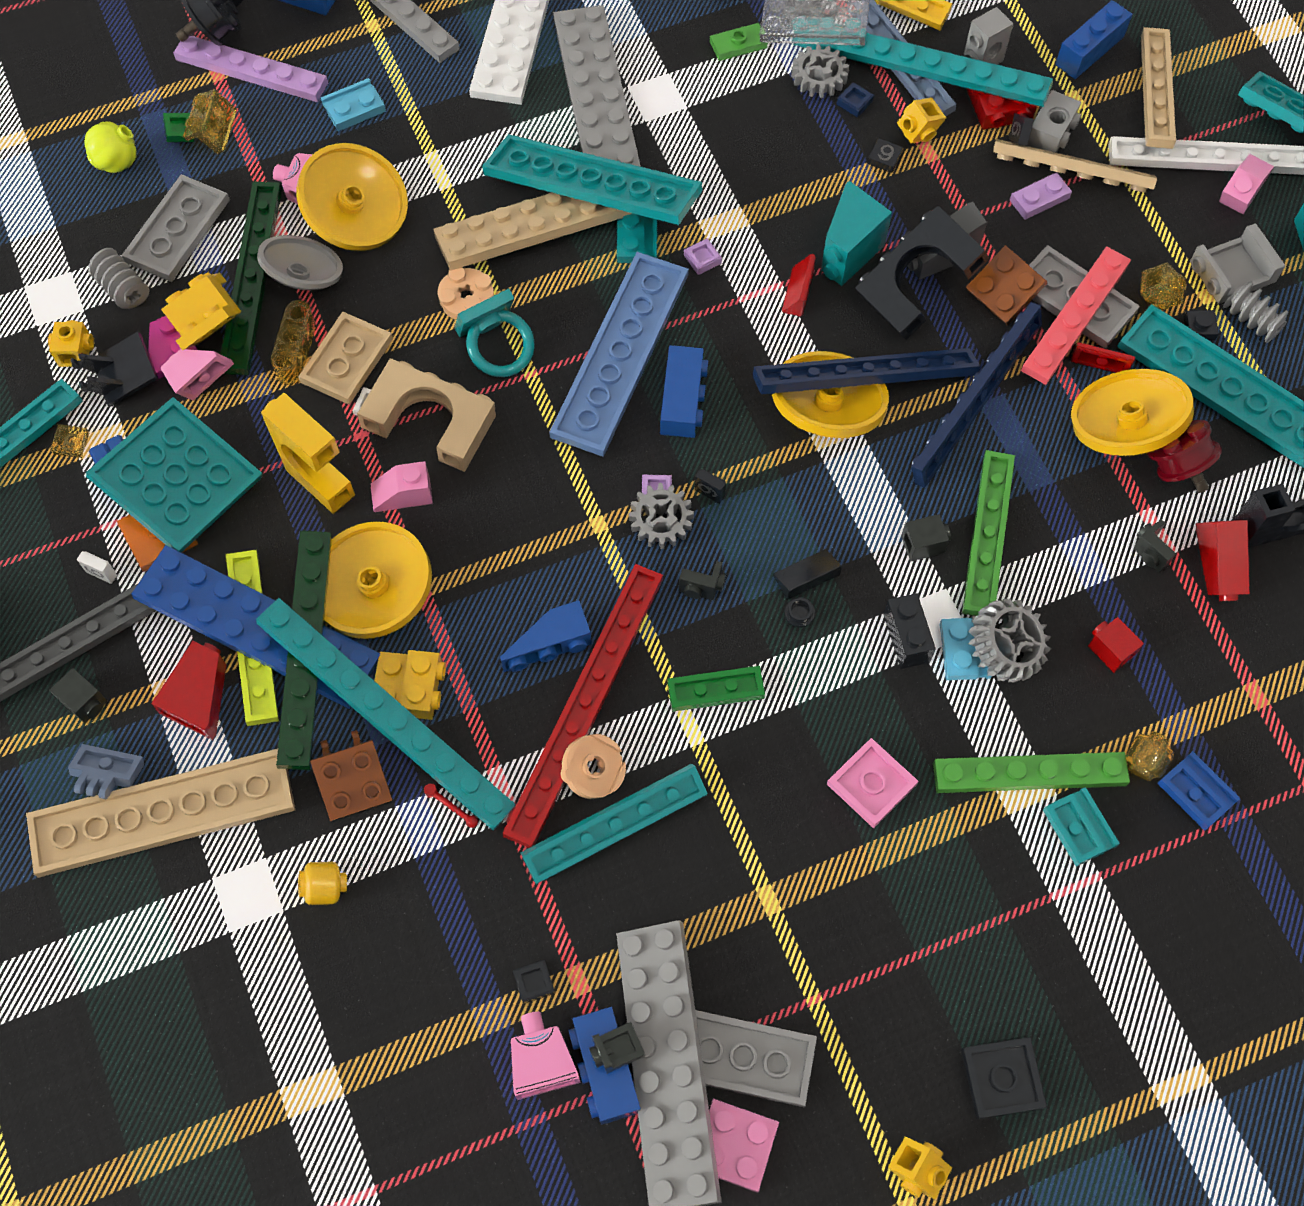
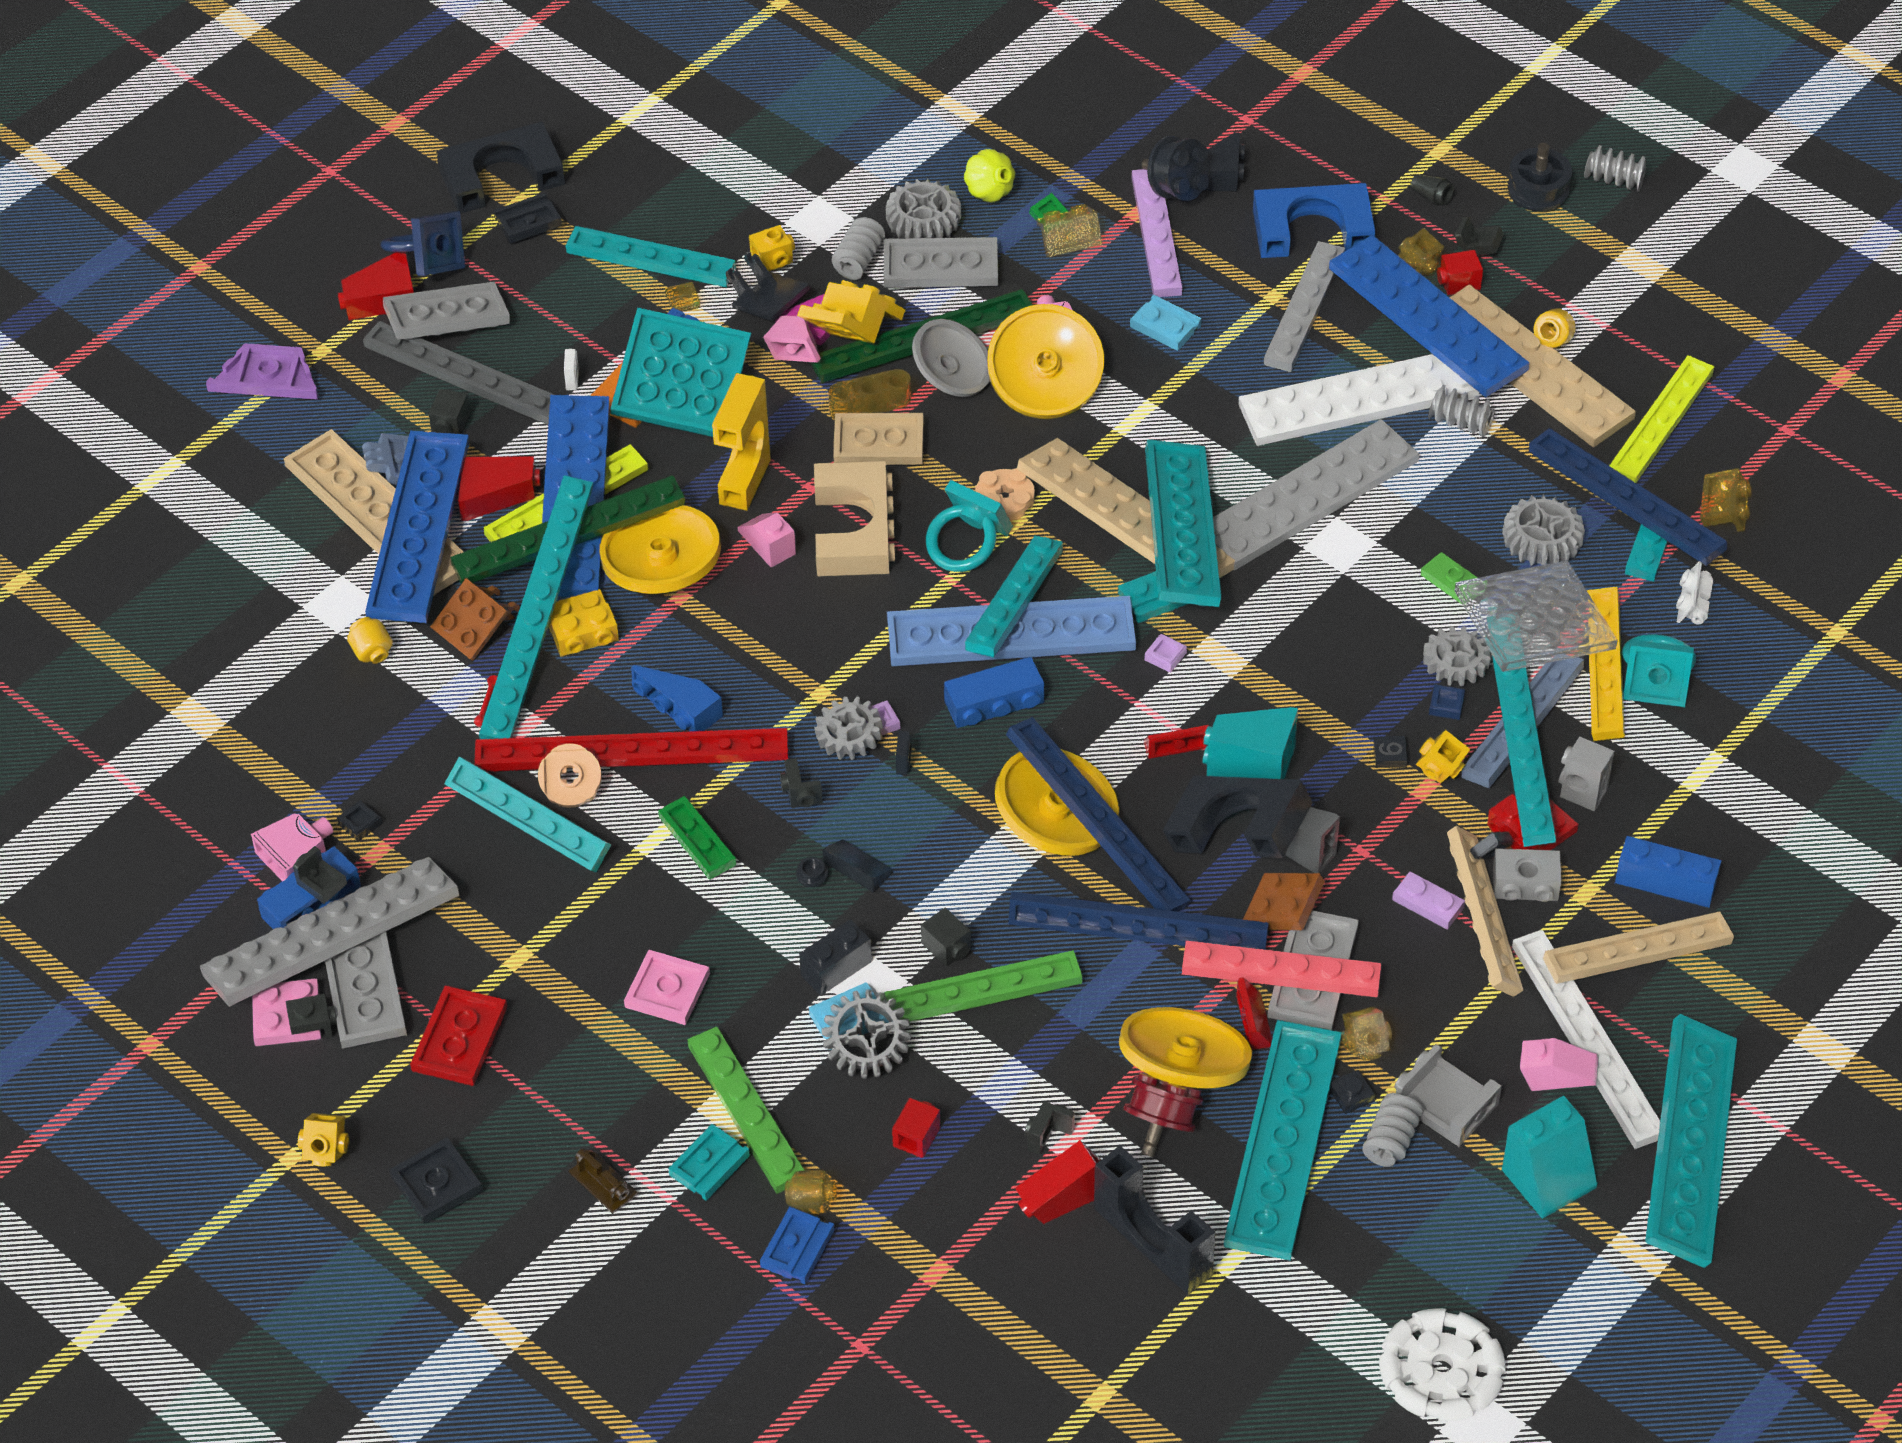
camera: 65 degrees right, 15 degrees down
(109, 214) = (923, 207): none -> light grey gear
(213, 780) = (417, 527): none -> blue plate
(593, 331) = (1013, 596): none -> teal plate
(763, 1123) = (310, 1015): none -> pearl dark grey bracket
(844, 989) = (459, 1035): none -> red plate
(1063, 926) = (602, 1180): none -> dark brown hinge

